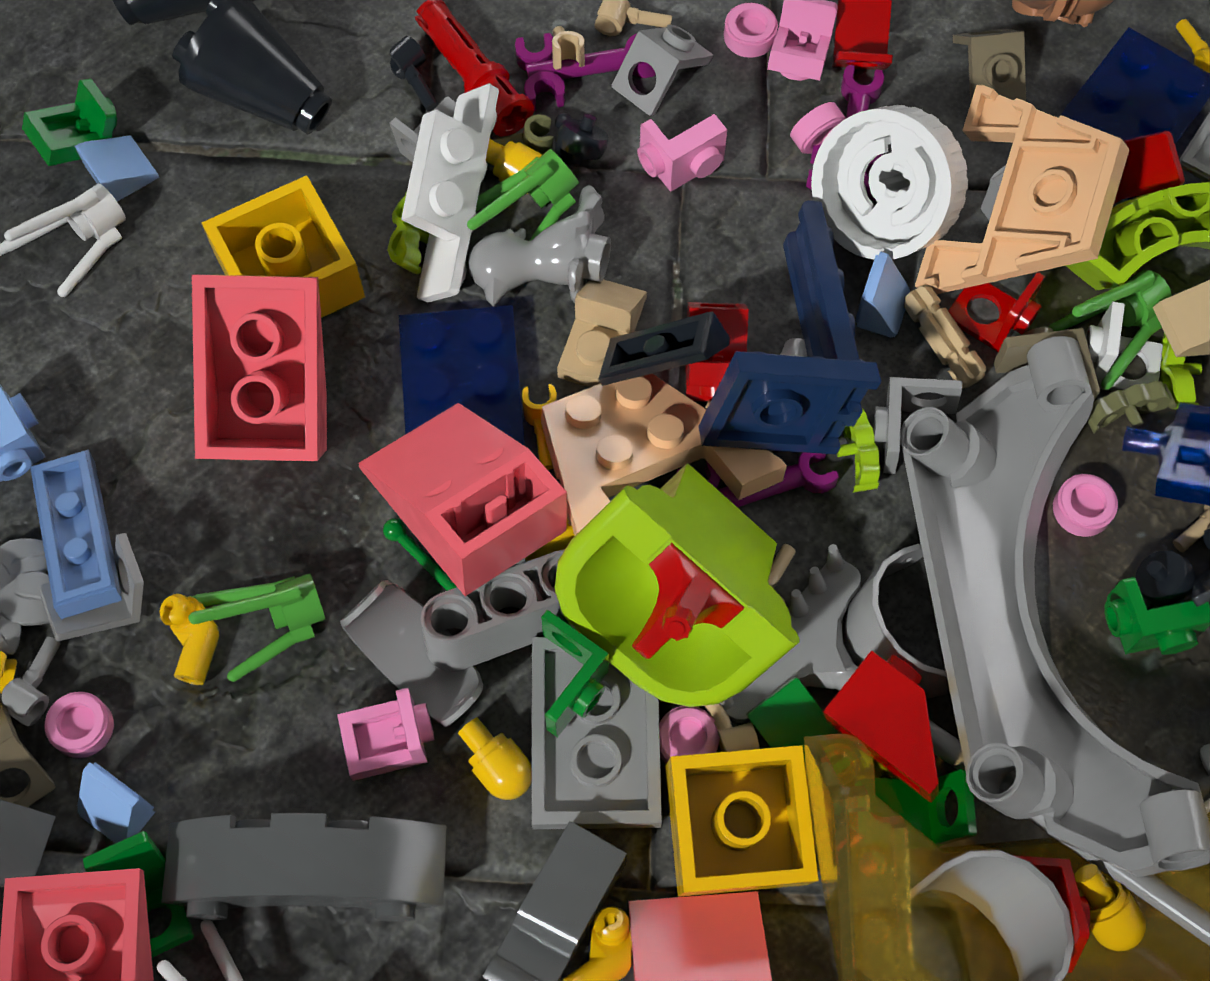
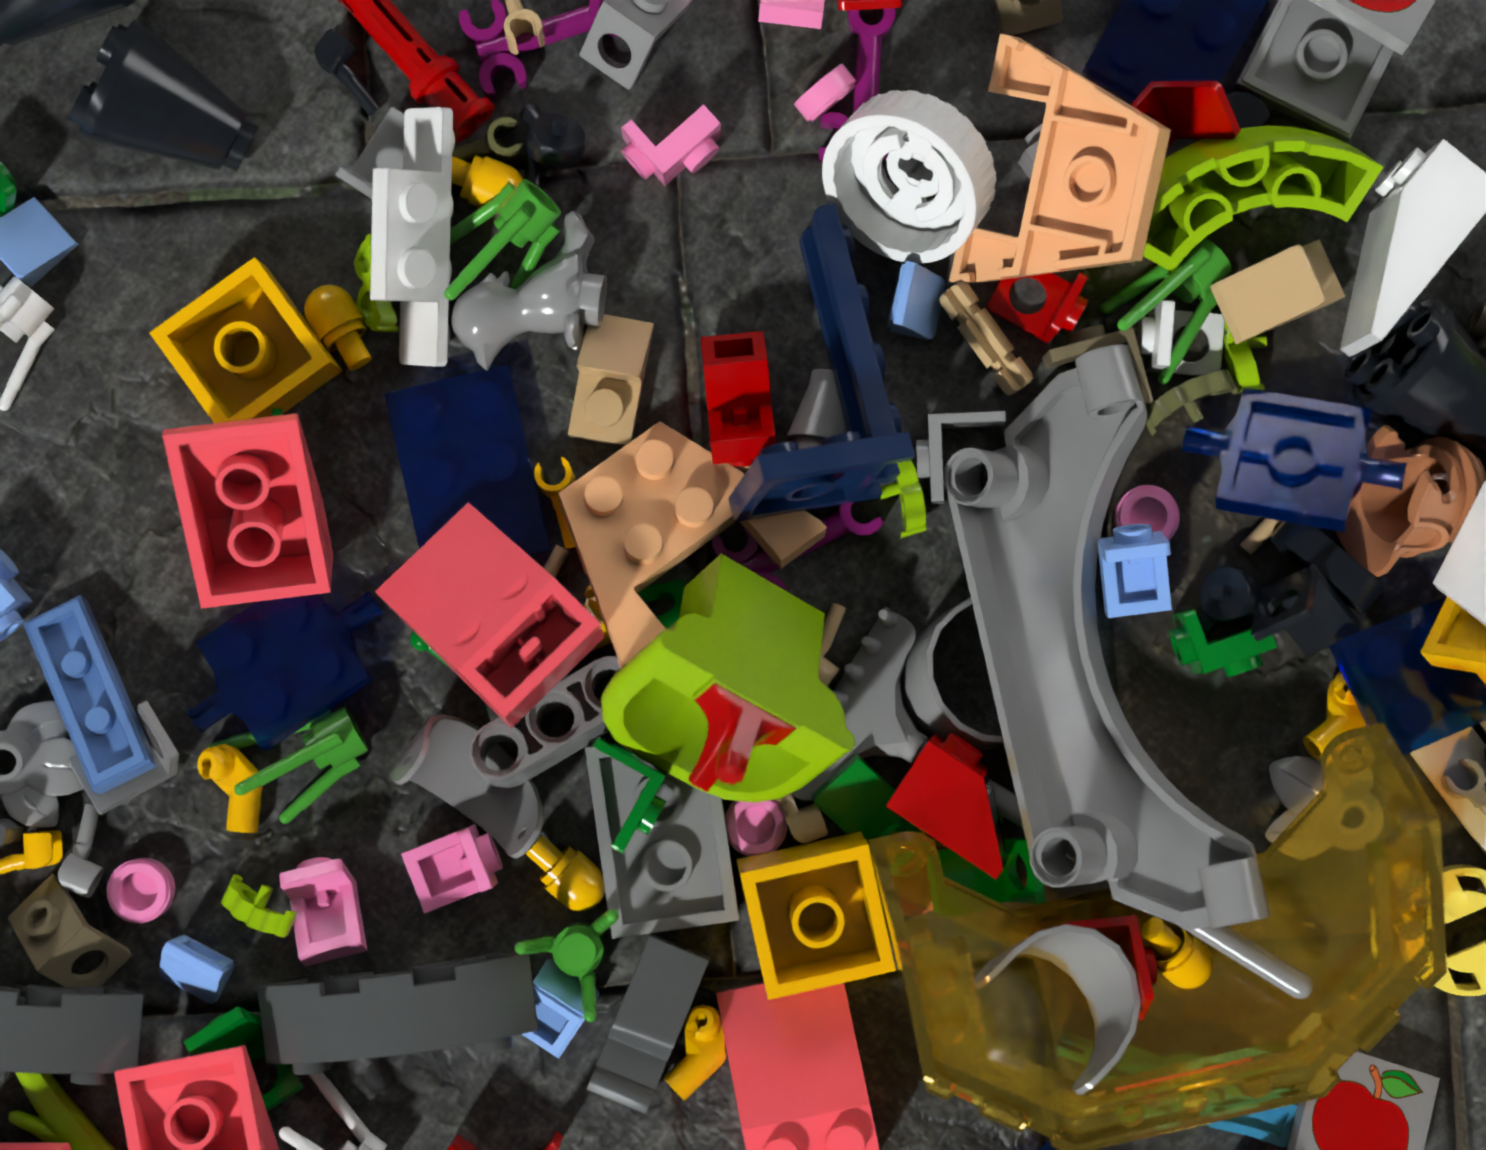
camera: 10 degrees left, 20 degrees up
(188, 752) = (250, 908): none -> lime piece
(251, 759) = (326, 910): none -> bright pink bracket
(262, 530) = (284, 664): none -> clear blue plate
(371, 256) = (337, 323): none -> yellow cylinder
(469, 896) = (557, 1008): none -> light blue slope
(496, 830) = (577, 953): none -> bright green plant
(663, 347) = (680, 422): black slope -> none
(1075, 542) = (1134, 571): none -> light blue bracket

